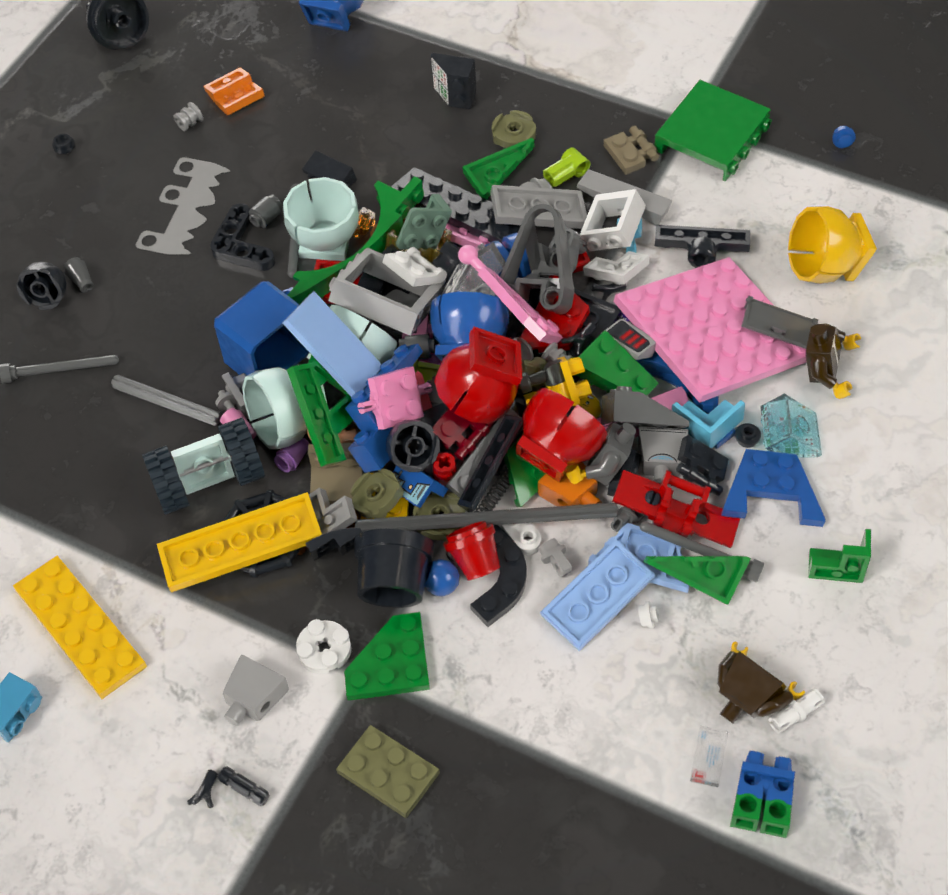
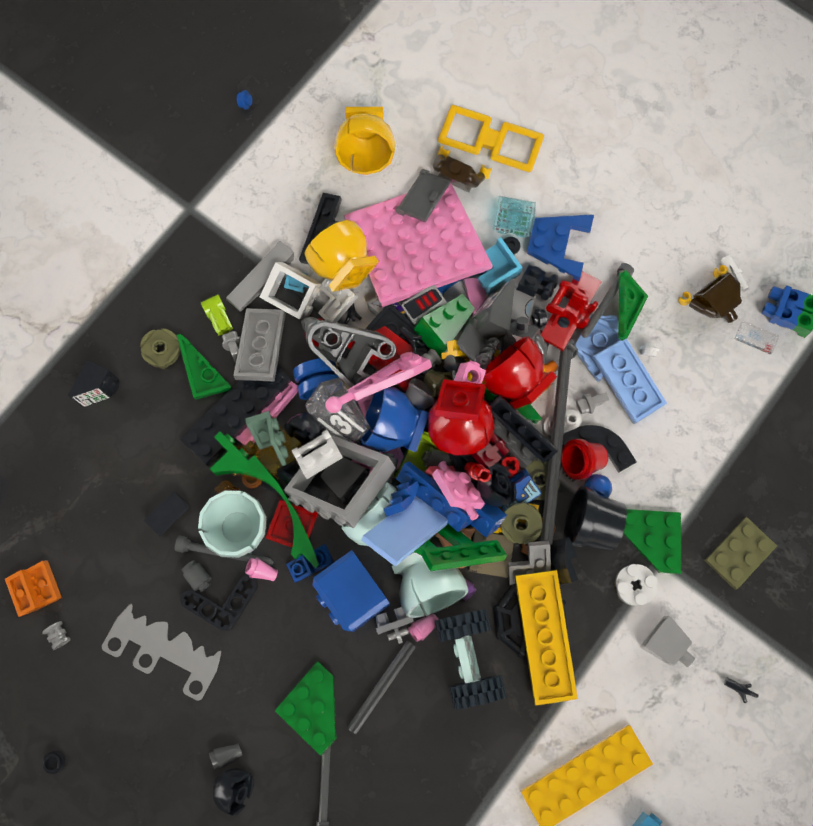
camera: 85 degrees left, 20 degrees up
(135, 338) = (312, 708): none -> green plate
(243, 786) = (740, 659): black axle -> none
(280, 262) = (258, 569): none -> bright pink cone
(377, 342) = (401, 498): none -> blue slope
(421, 413) = (477, 471): none -> red pin
(529, 370) = (475, 370): none -> bright pink brick
(584, 386) = (476, 347): none -> dark grey hinge
(625, 153) = (211, 265): dark tan plate -> none
(651, 469) = (539, 317): none -> black plate
(663, 243) = (341, 255): none -> yellow plate
(714, 127) = (208, 190): green panel -> none
(843, 565) = (629, 211): green panel -> none
(894, 390) = (491, 138): none -> yellow bar

